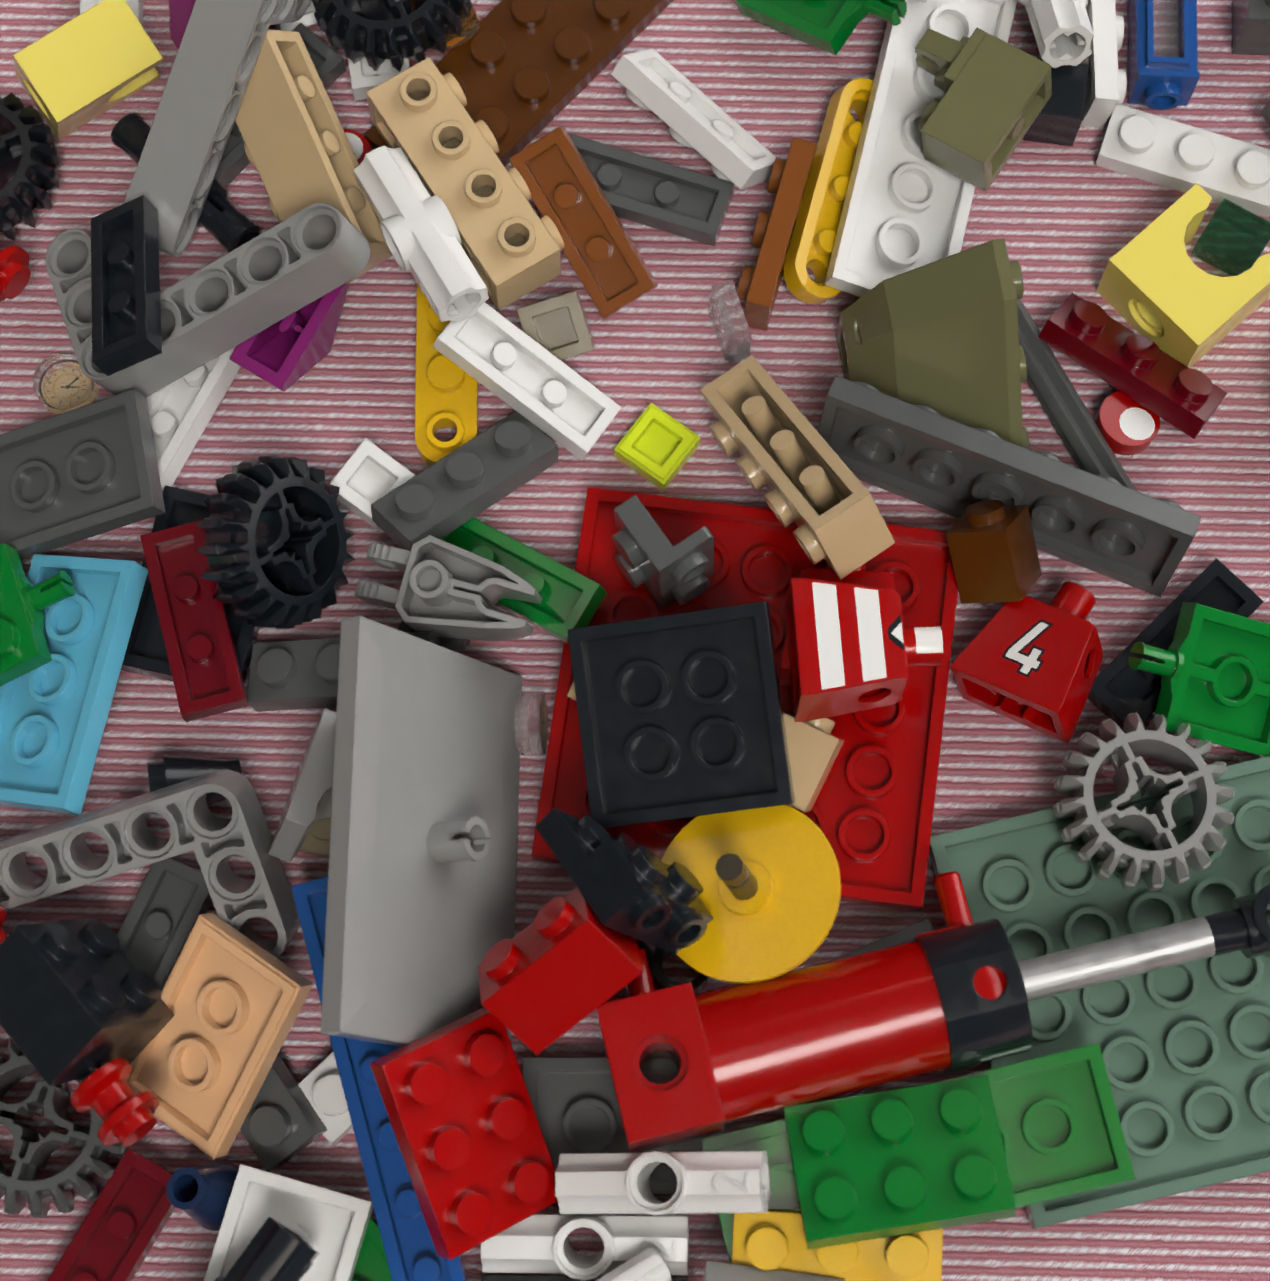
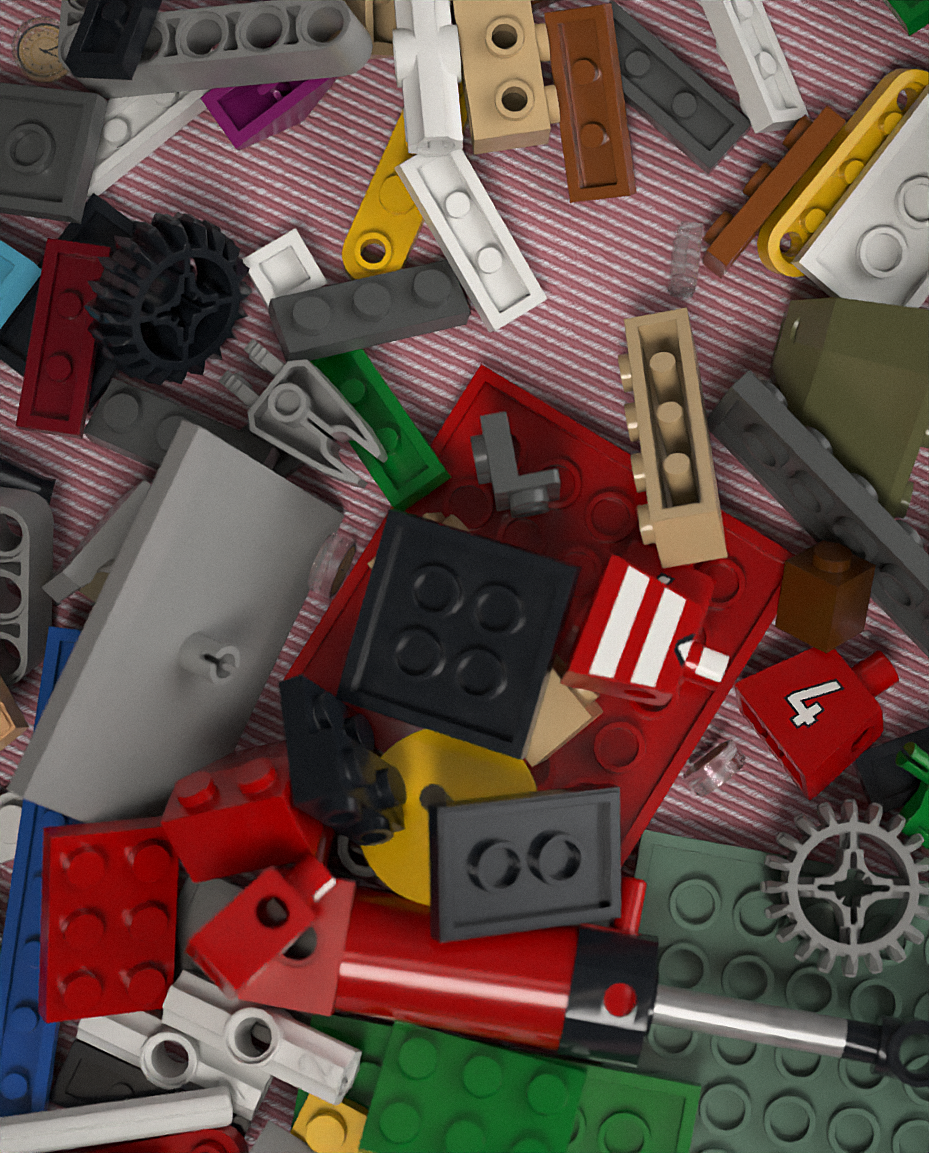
camera: 25 degrees right, 10 degrees up
(558, 325) = (522, 193): dark tan plate -> none
(612, 1076) = (237, 947): none -> red torso
(657, 446) = (565, 349): neon yellow tile -> none
(839, 895) = (524, 861): none -> black tile
(966, 755) = (714, 768): none -> clear tile

